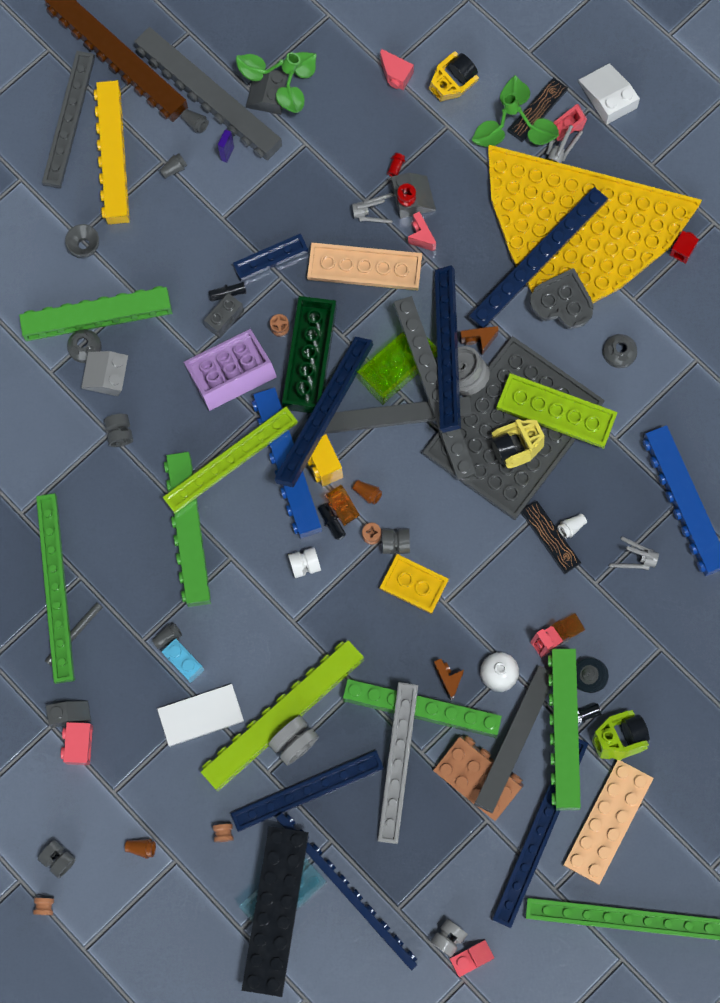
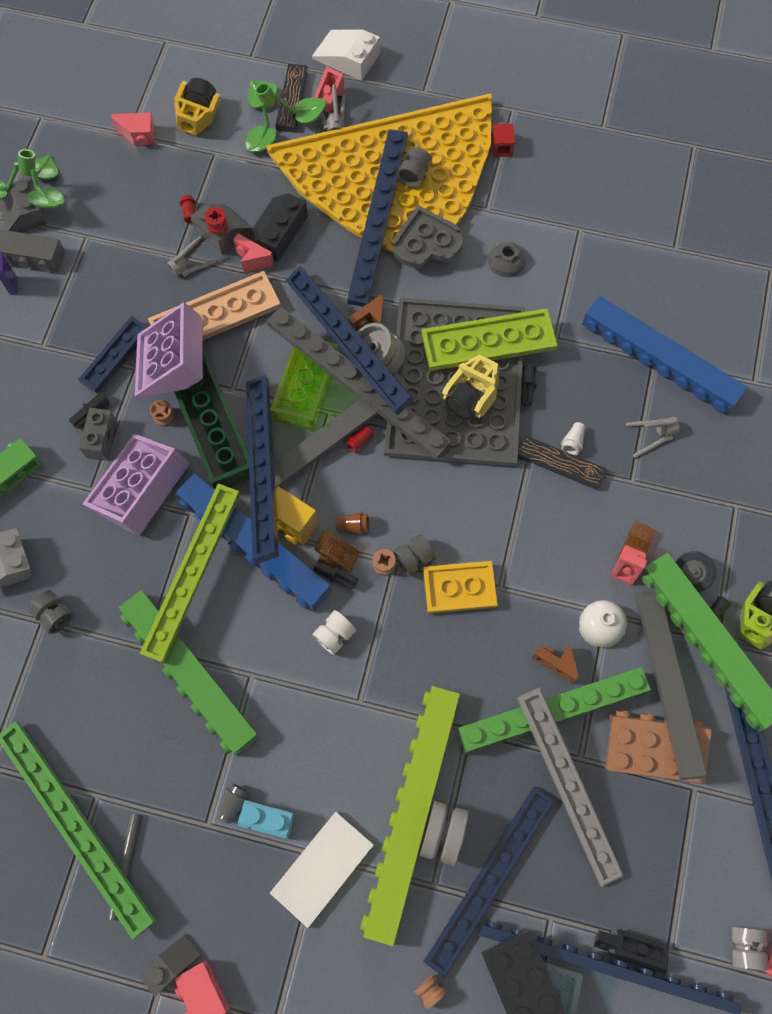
camera: 35 degrees left, 5 degrees down
(309, 284) = (169, 353): none -> lavender slope
(372, 891) = (634, 949): none -> black hinge
(413, 430) = (359, 439): none -> red pin
(456, 219) = (279, 224): none -> black slope
(566, 463) = (528, 384): none -> black axle
(592, 233) = (414, 167): none -> dark grey wheel

